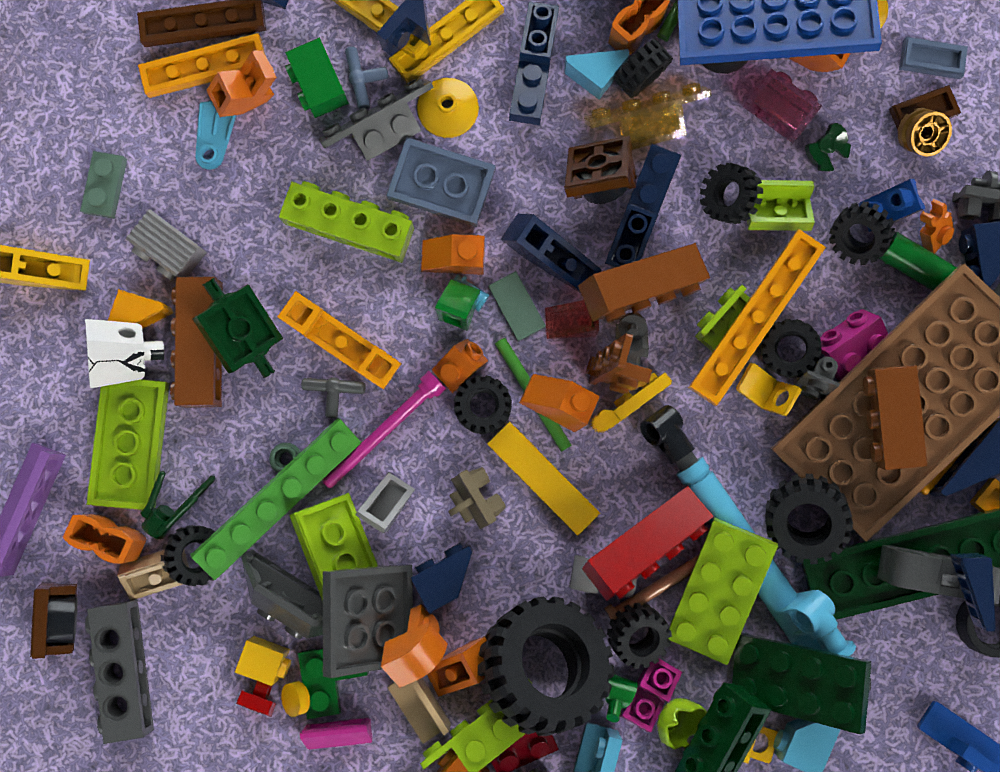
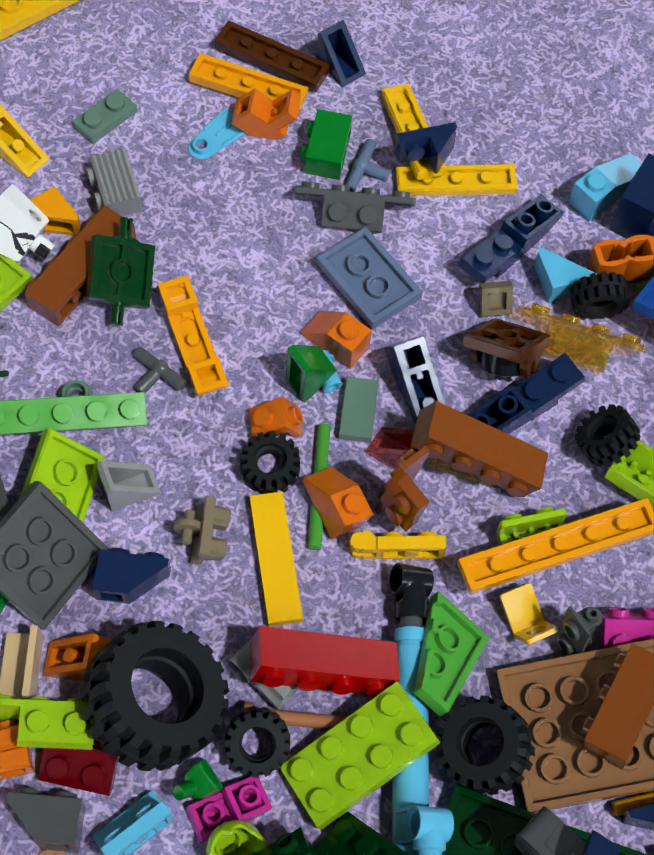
camera: 30 degrees right, 20 degrees down
(347, 221) = (270, 256): lime brick -> none
(416, 651) = (55, 605): orange brick -> none
(428, 388) = (235, 420): dark pink piece -> none
(448, 121) = (413, 240): yellow dish -> none
(558, 128) = (495, 298): none -> dark tan plate
(635, 325) = (436, 488): dark grey hips -> none
(732, 467) = (447, 654): none -> bright green wing
(788, 328) = (567, 579): black tyre -> none

